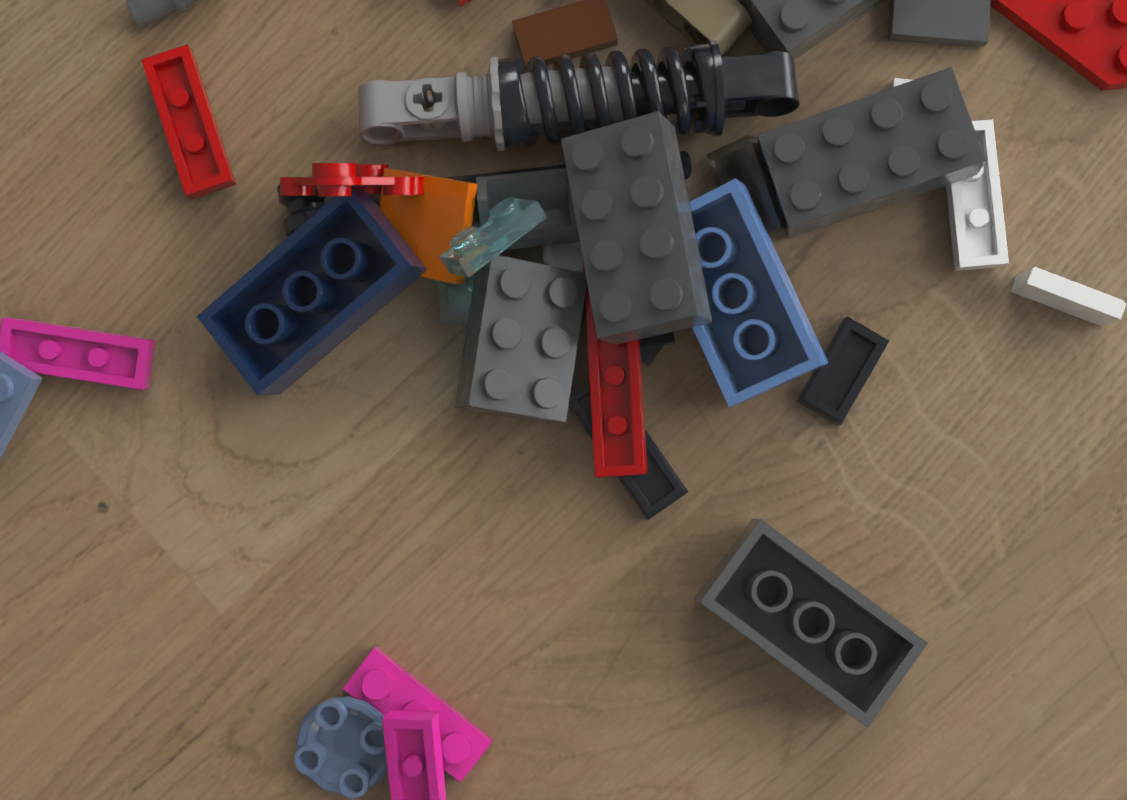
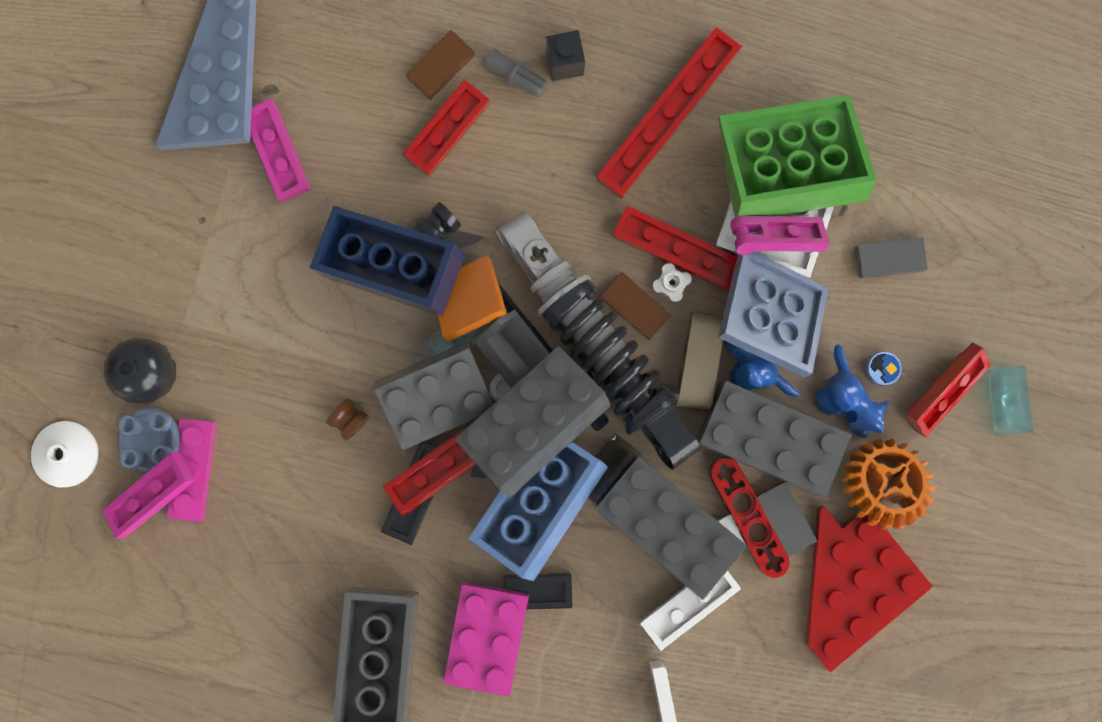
camera: 60 degrees right, 0 degrees up
(101, 81) = (440, 64): none -> reddish brown tile
(247, 703) = (139, 370): none -> black cylinder
(337, 178) = (446, 236): red plant -> none
(478, 246) = (468, 338): clear light blue plate -> none
(480, 473) = (347, 419): none -> reddish brown wheel
(862, 469) = (486, 638): none -> dark pink plate
(910, 51) = (752, 515): none -> red beam

